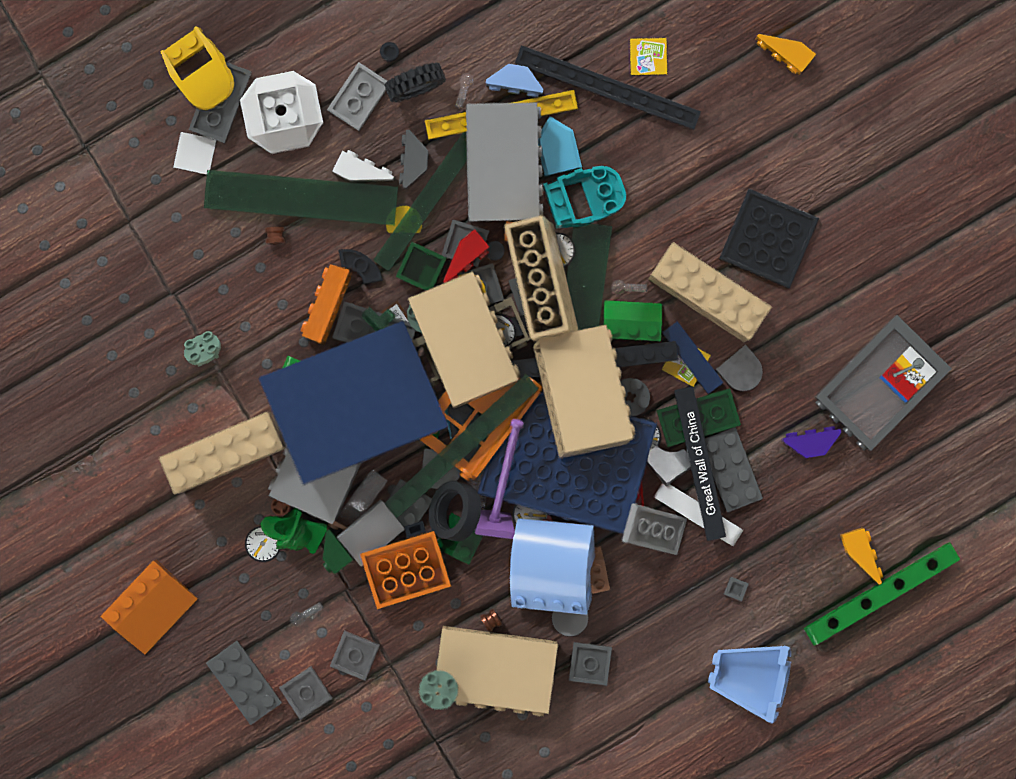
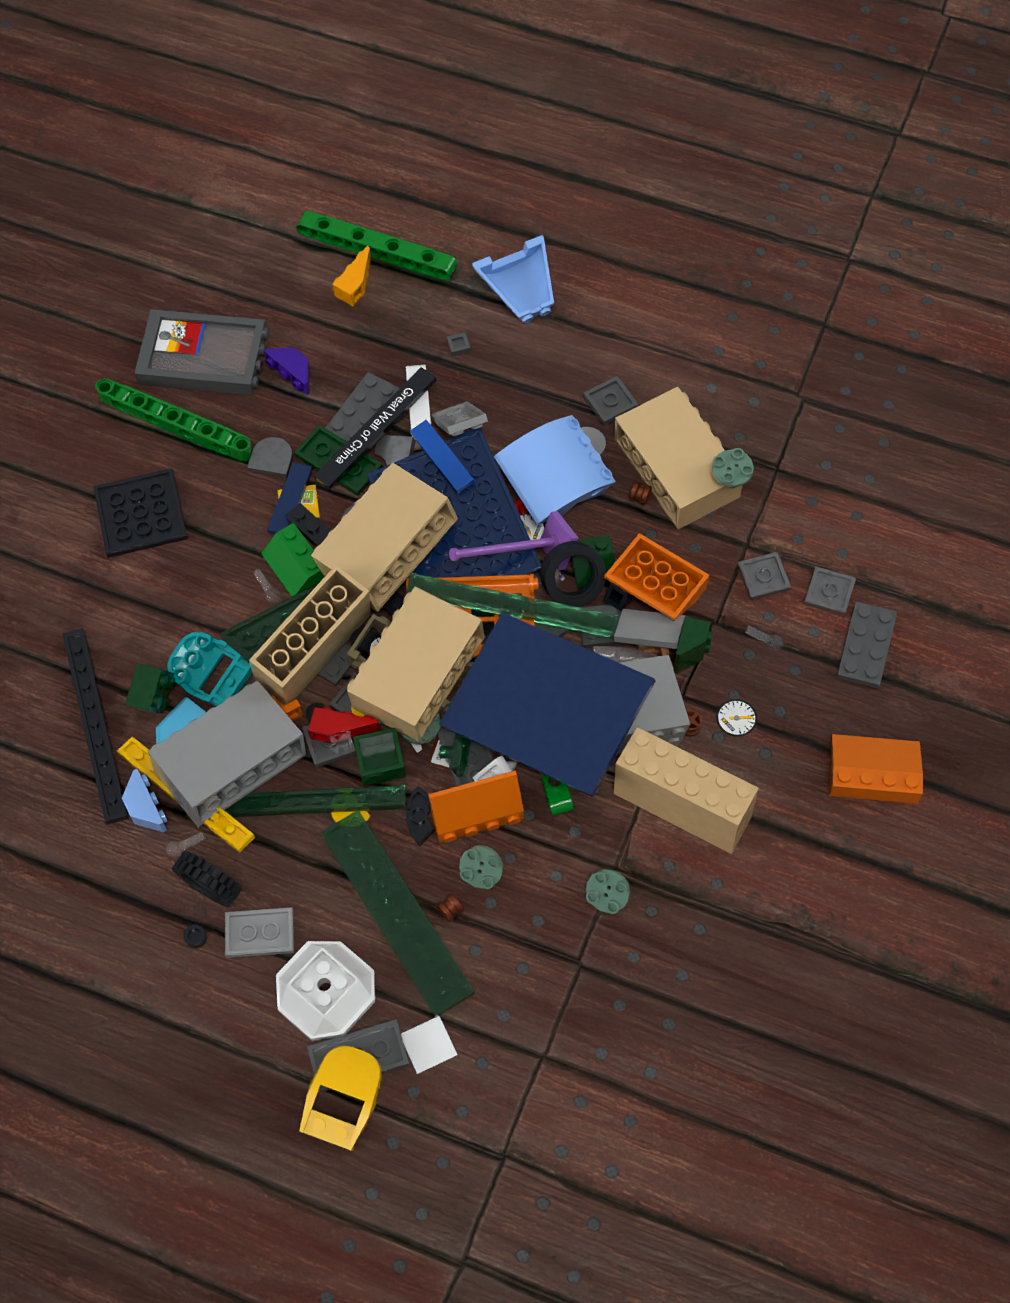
camera: 125 degrees left, 25 degrees down
(285, 277) = (471, 863): none -> sand green plate
(294, 531) = (703, 692): green helmet -> none
(339, 332) = (495, 768): none -> white tile
(356, 170) = (331, 879): white slope -> none
(414, 160) = (284, 837): dark grey slope -> none
(597, 142) = (150, 689): none -> dark green piece
(623, 486) = (442, 456): none -> blue tile
(648, 56) = (41, 714): sticker -> none
(709, 293) = (220, 509): tan brick -> none
(846, 312) = (185, 424): none -> green beam

